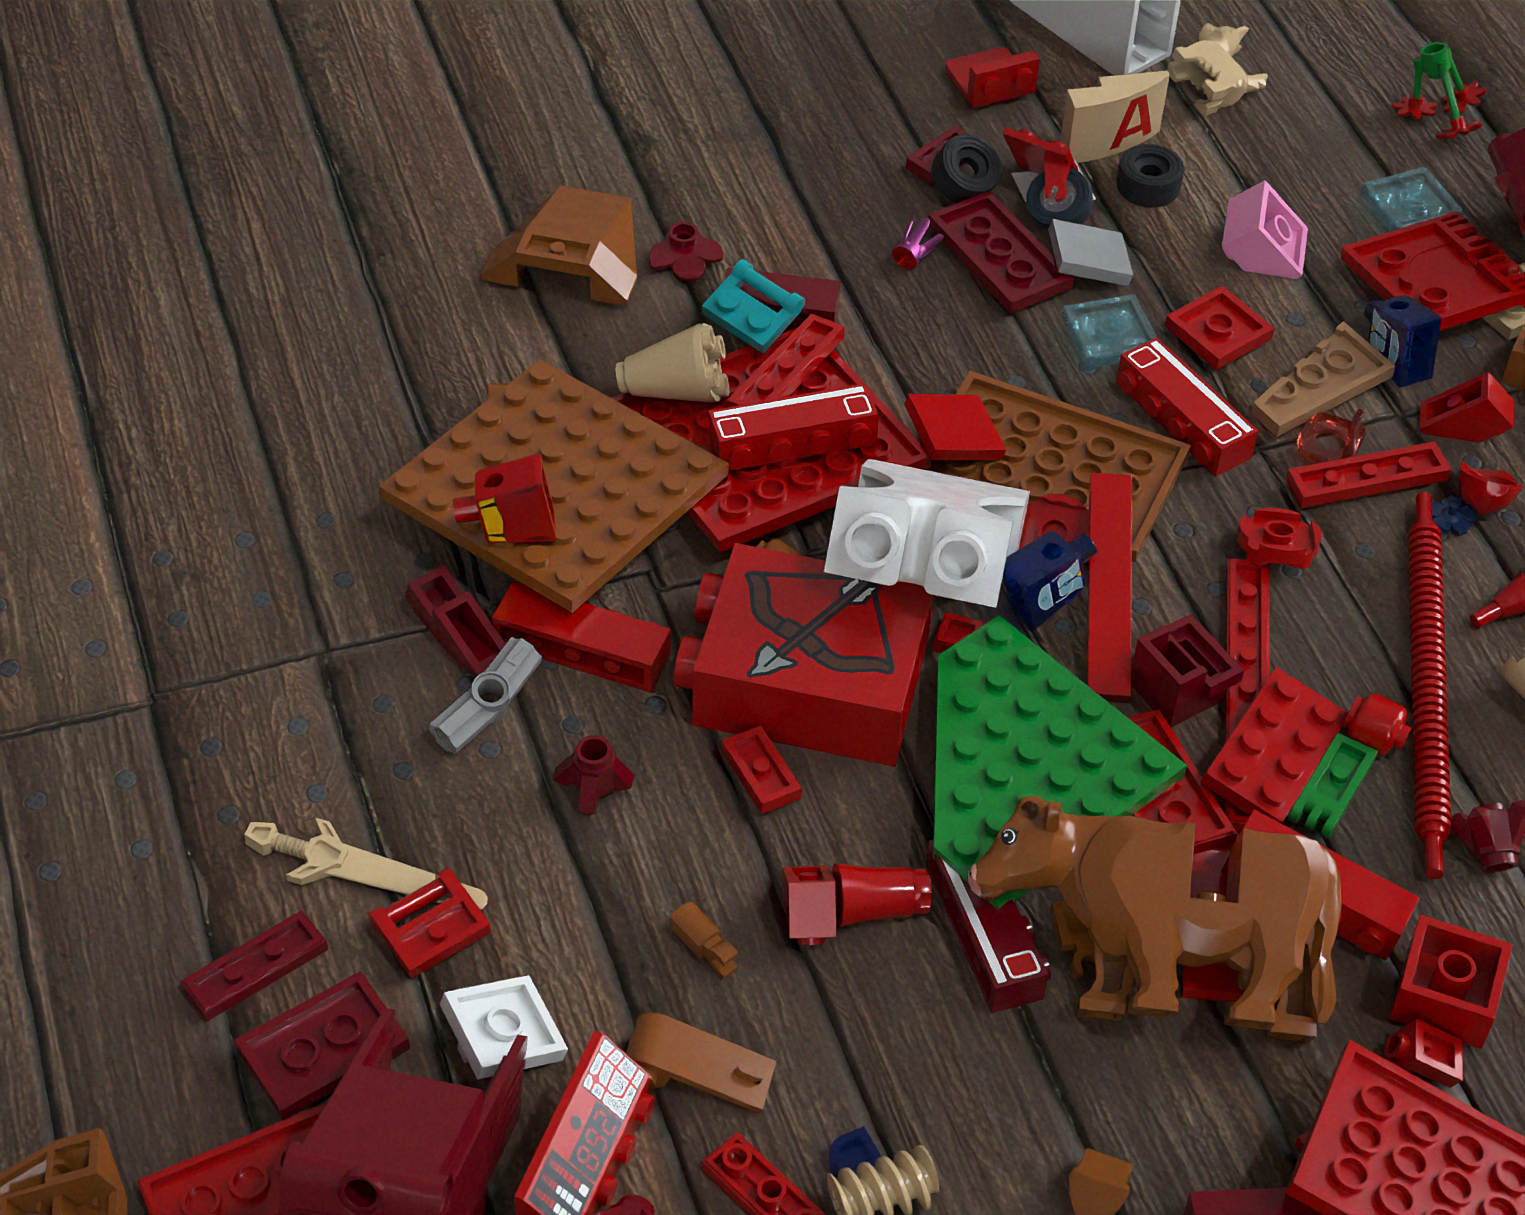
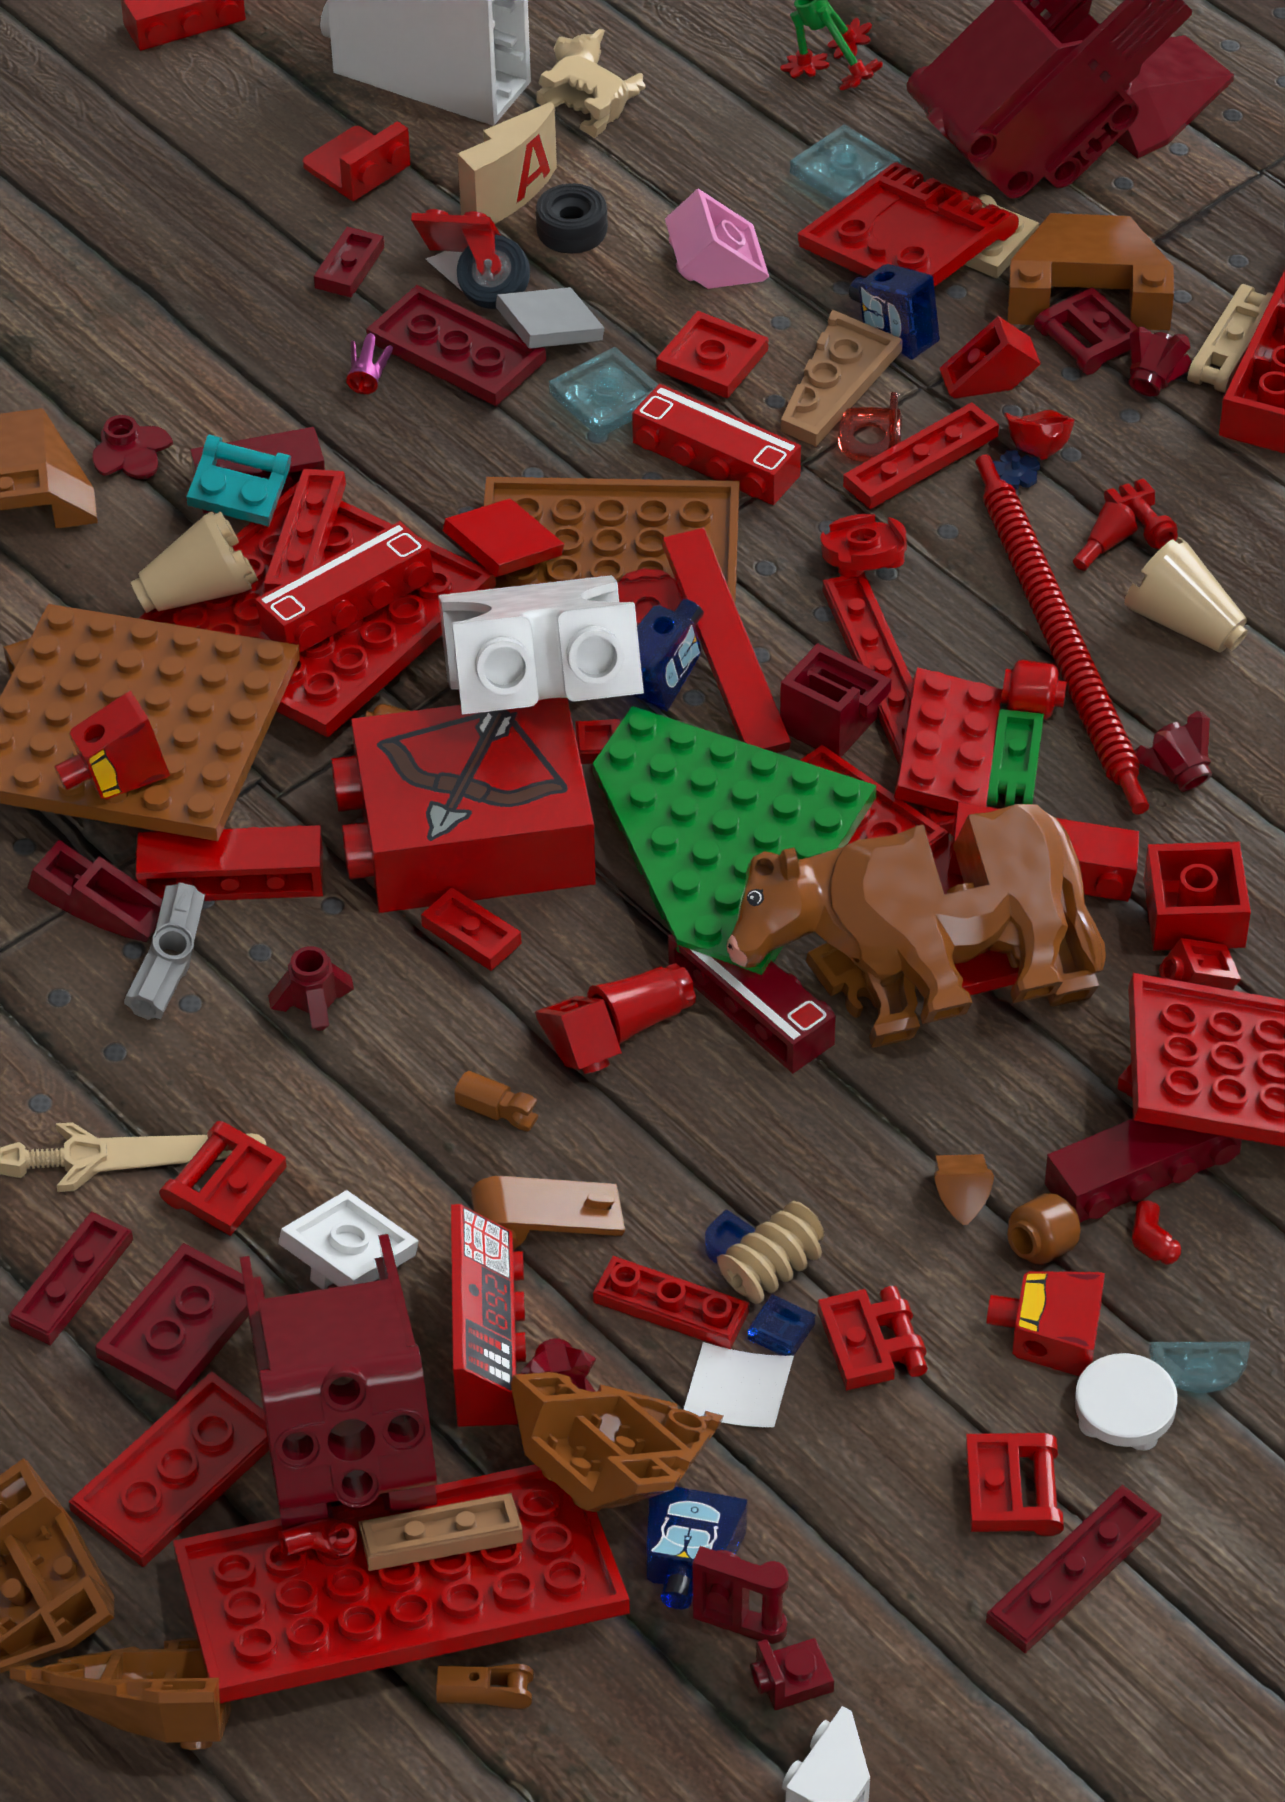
camera: 20 degrees left, 0 degrees up
(978, 155) = (390, 251): black tyre -> none

